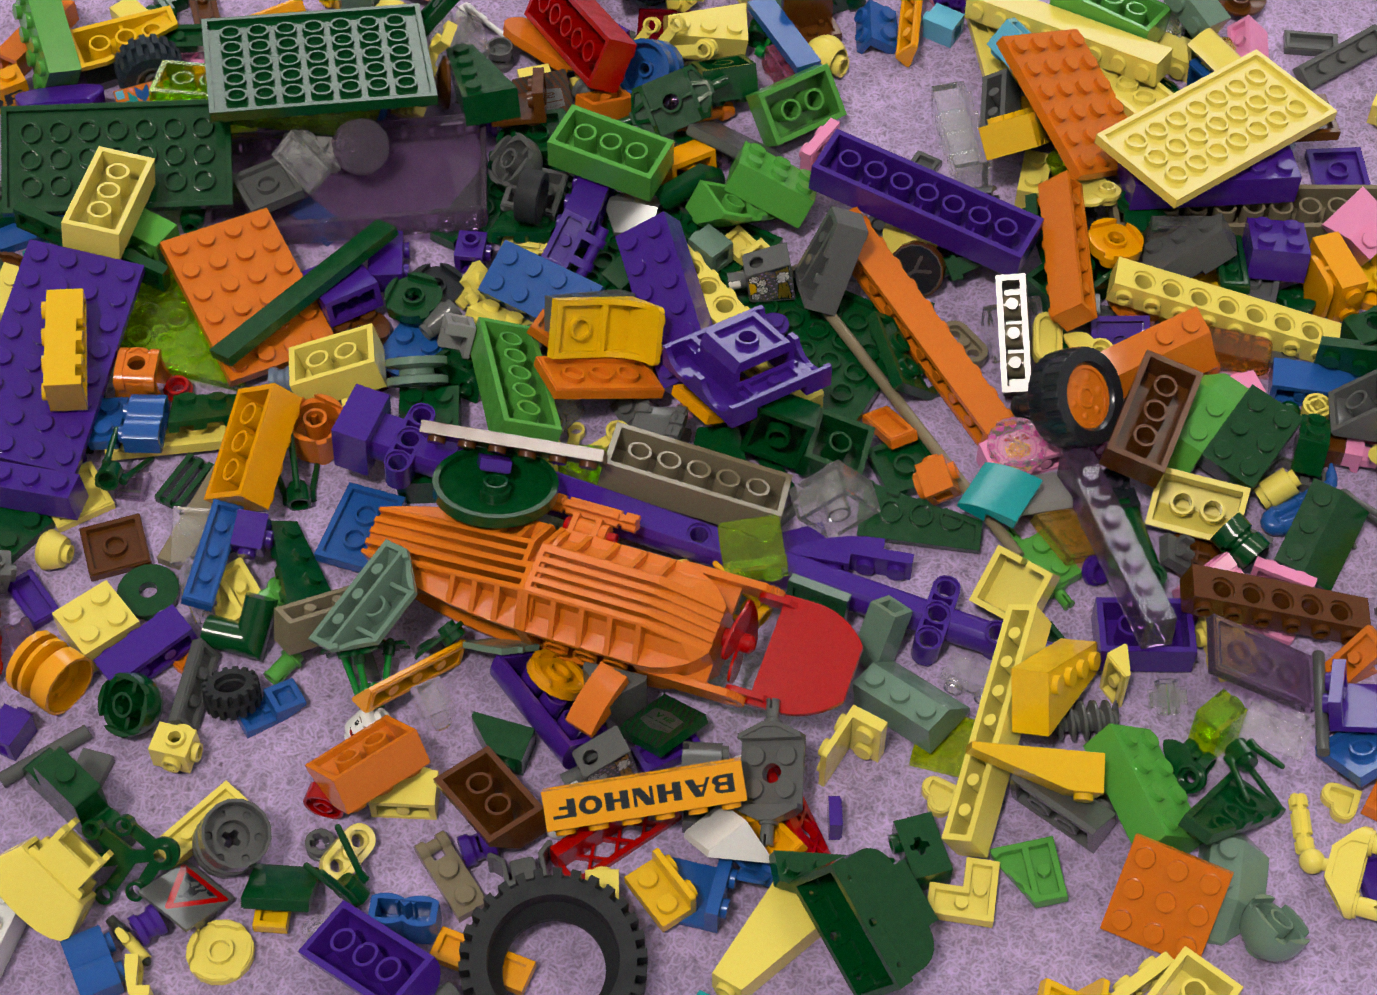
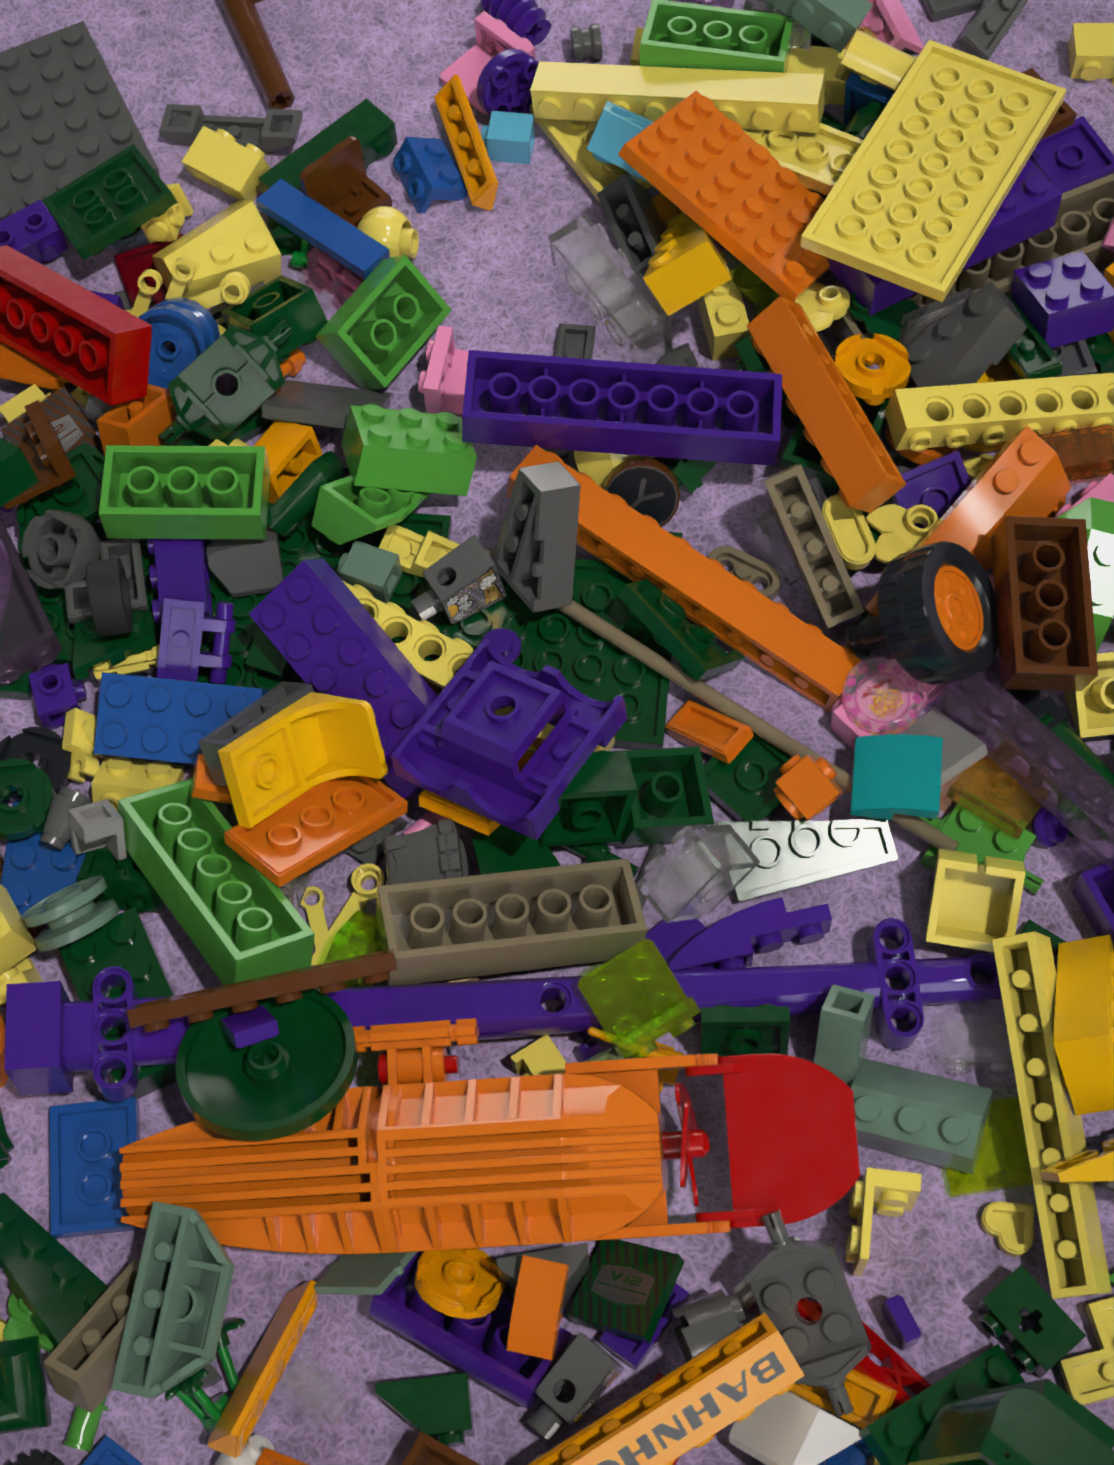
camera: 20 degrees left, 10 degrees up
(448, 634) = (289, 1285): dark green plate -> none

